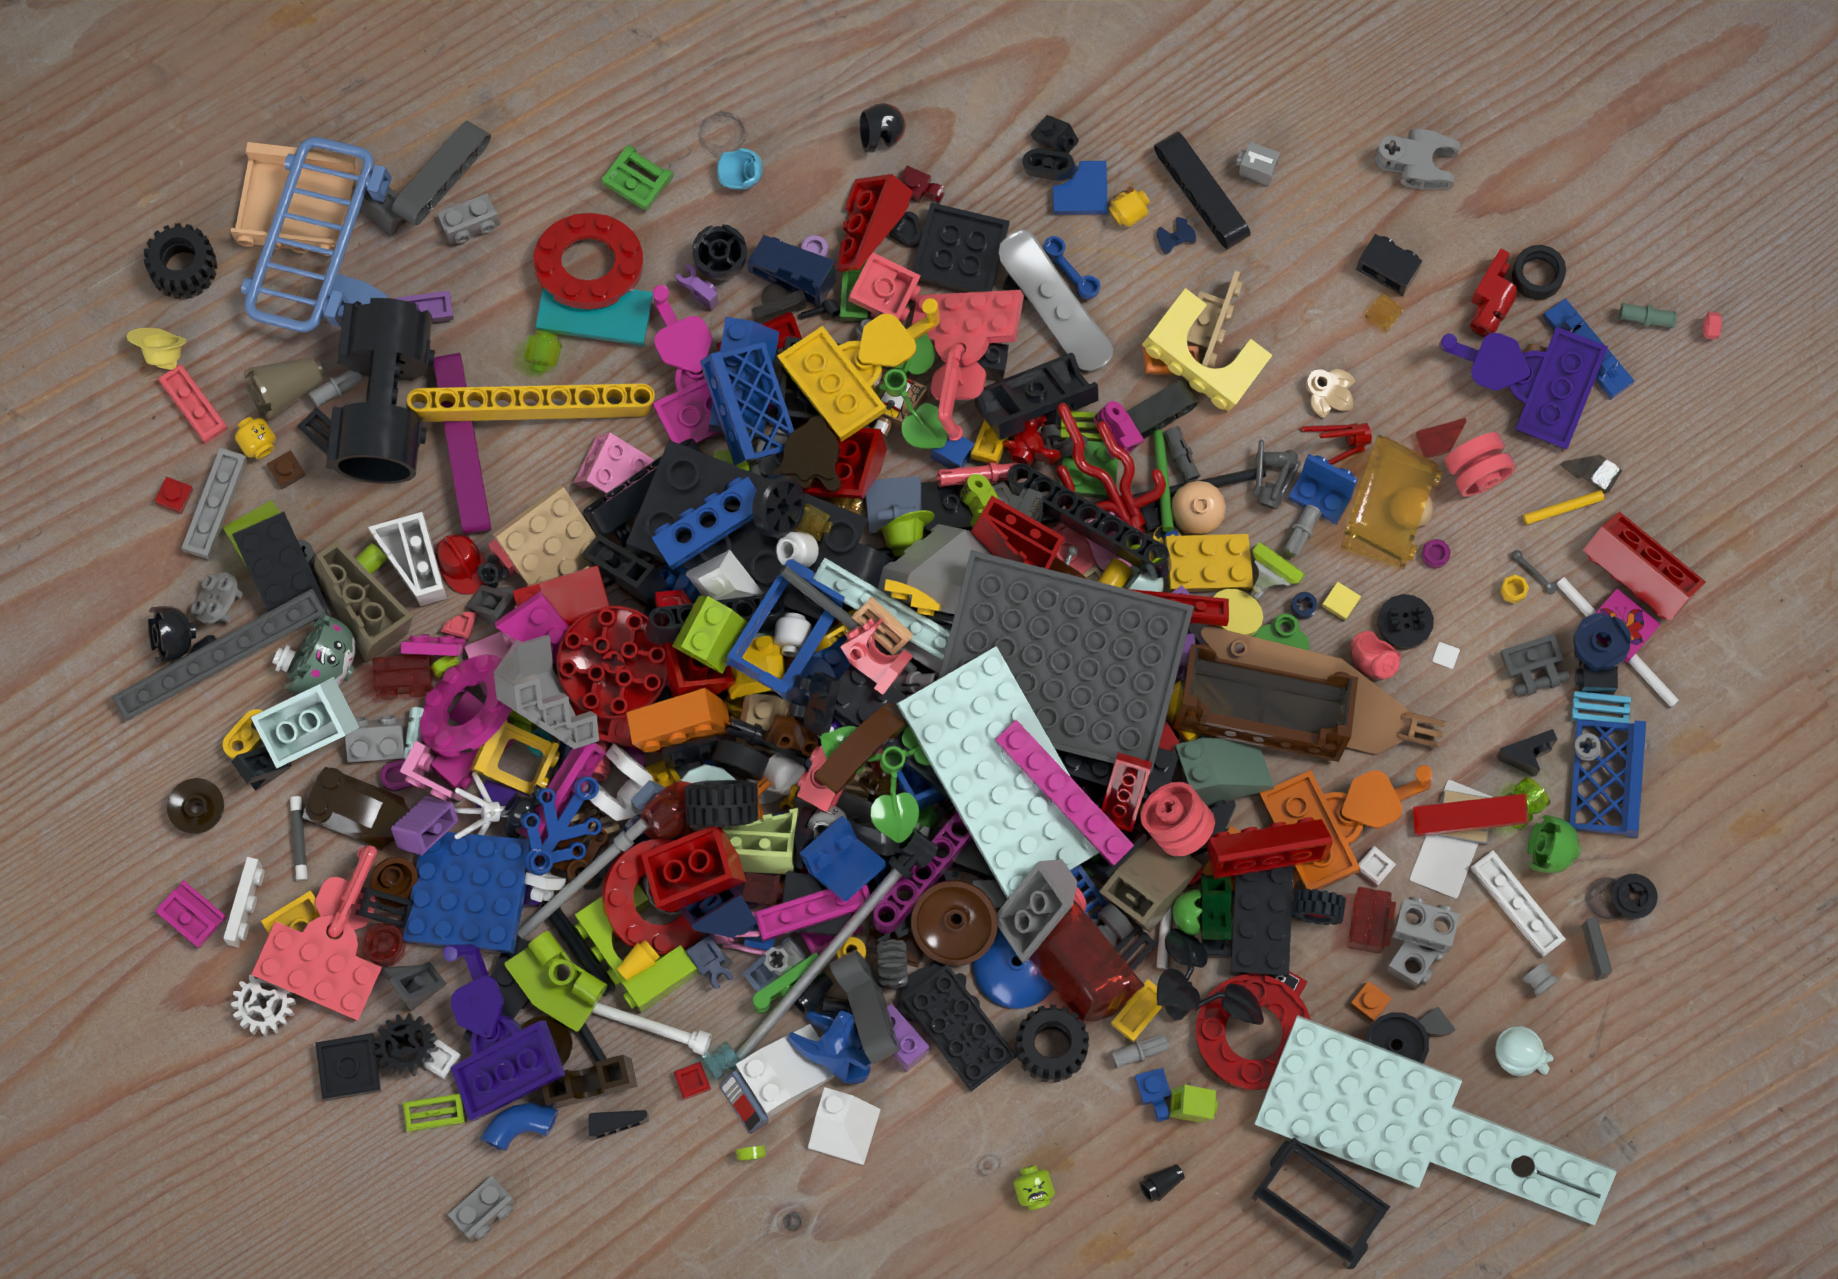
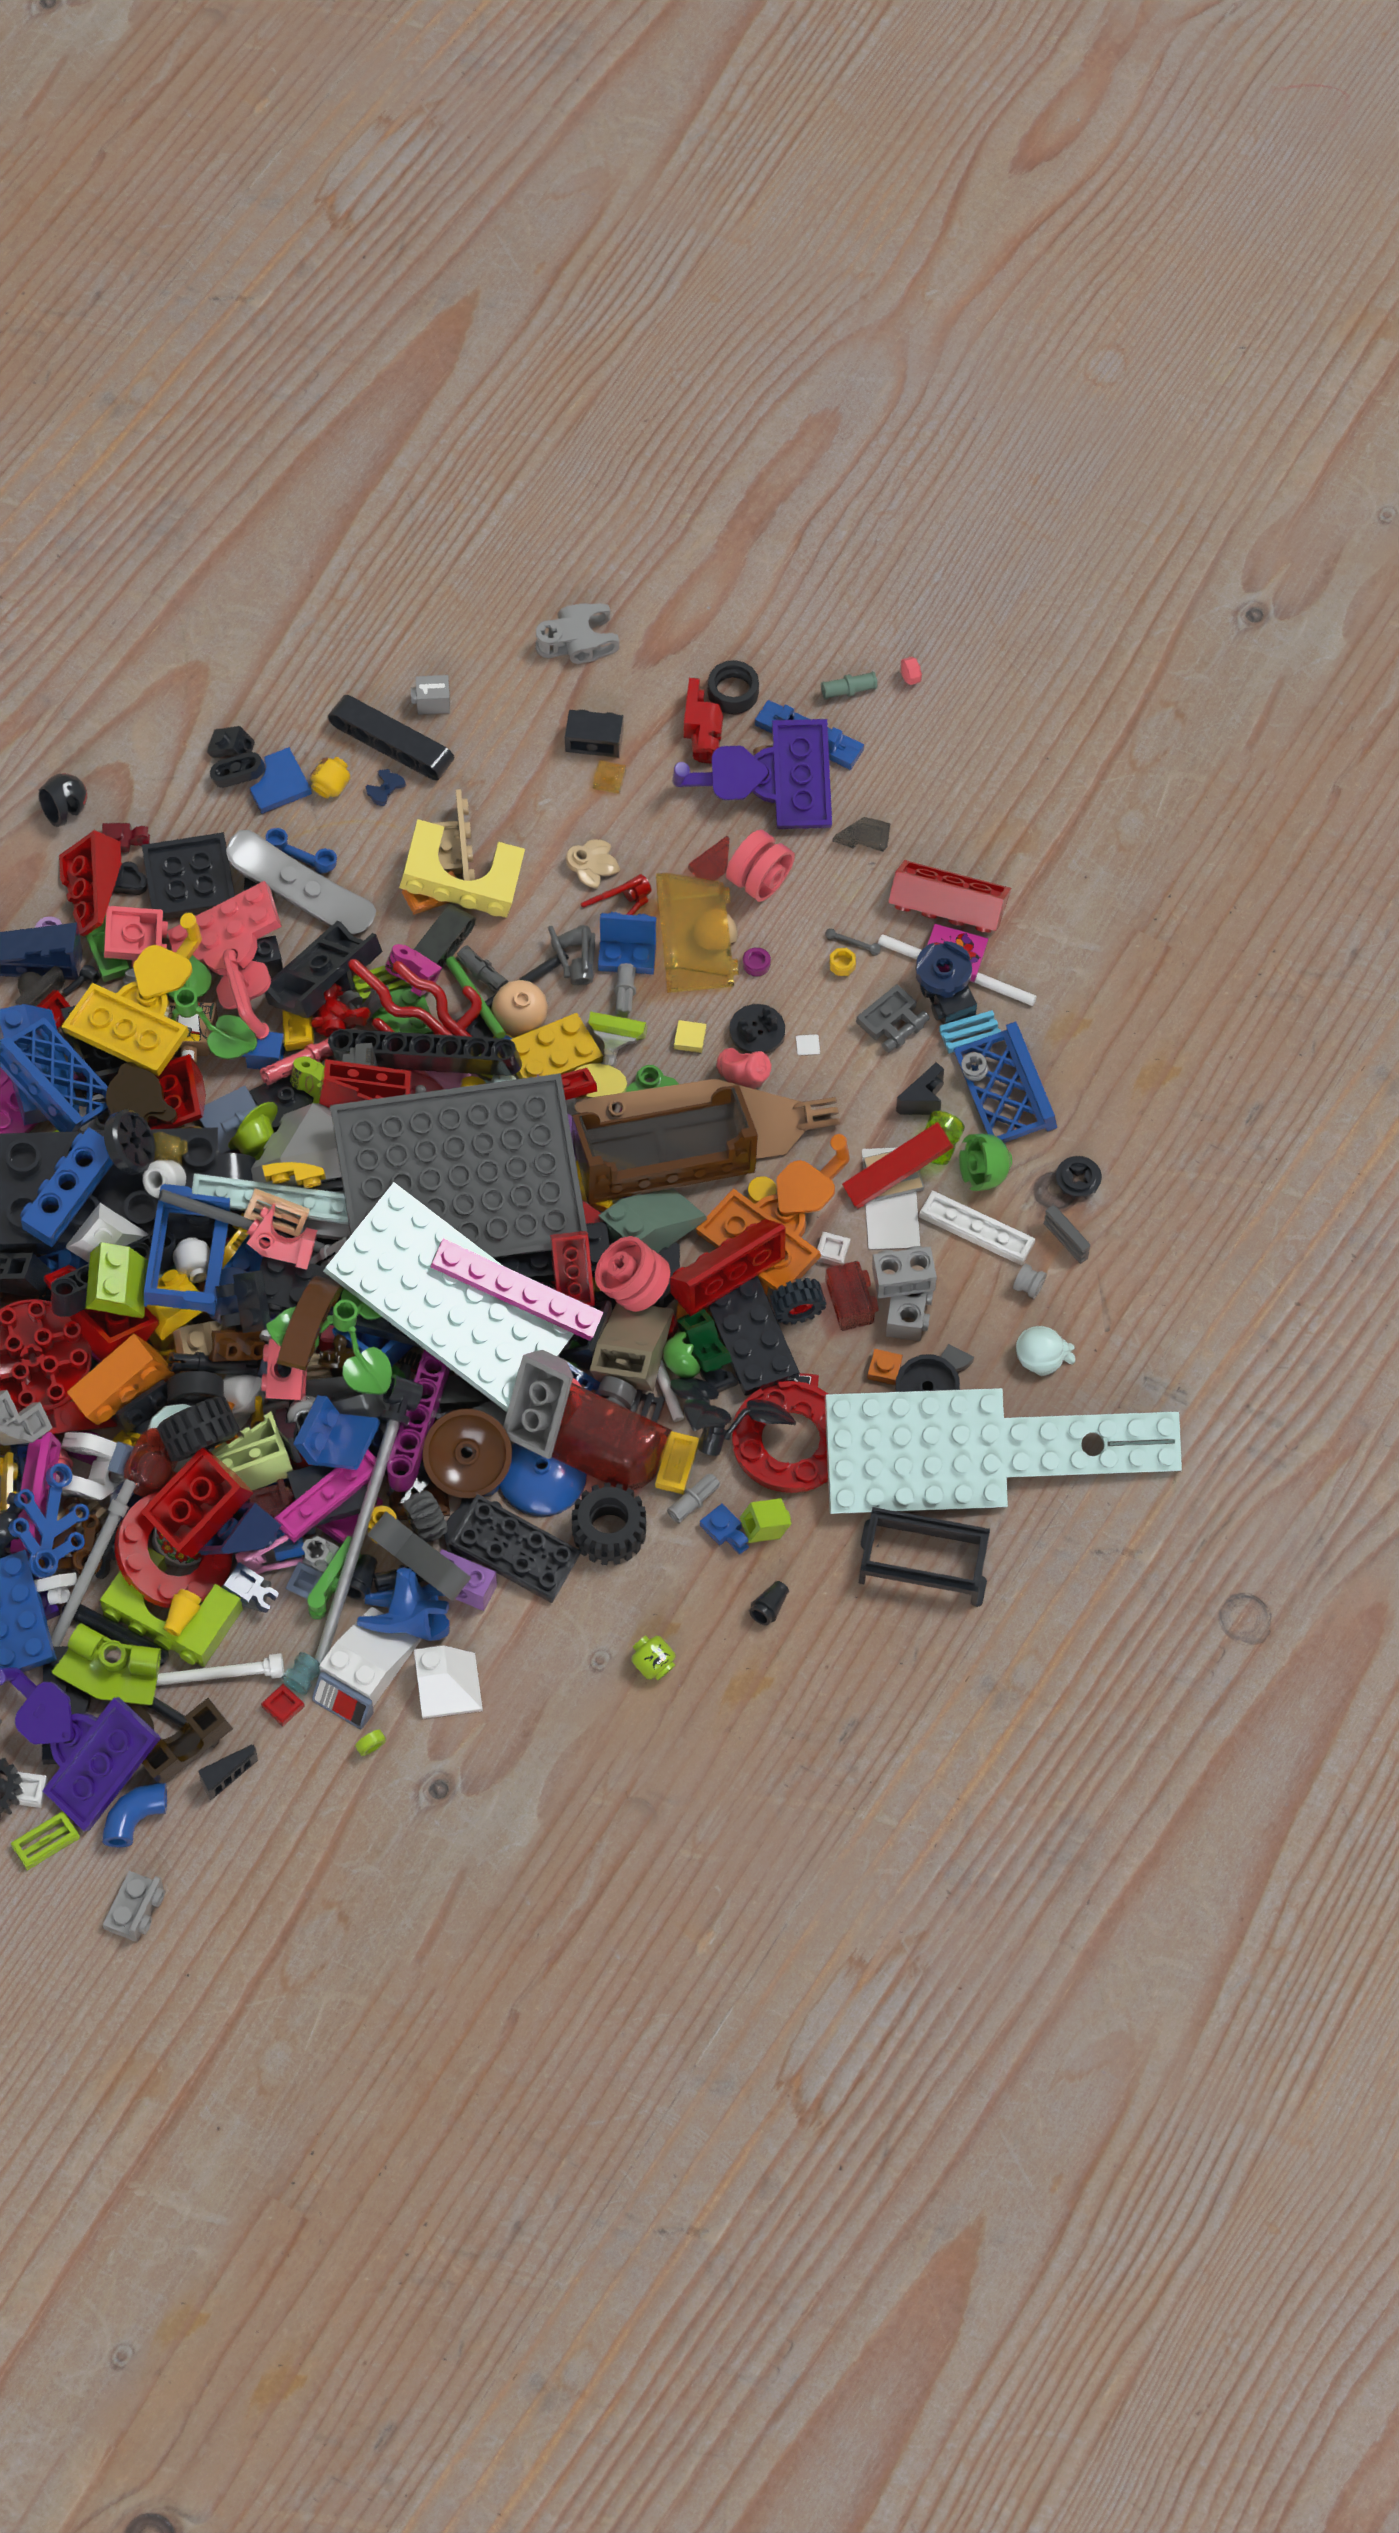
camera: 25 degrees left, 10 degrees down
(1308, 613) = (665, 1053): dark blue bush -> none
(1337, 780) = (760, 1188): none -> yellow tile
(1563, 507) = (852, 876): yellow bar -> none

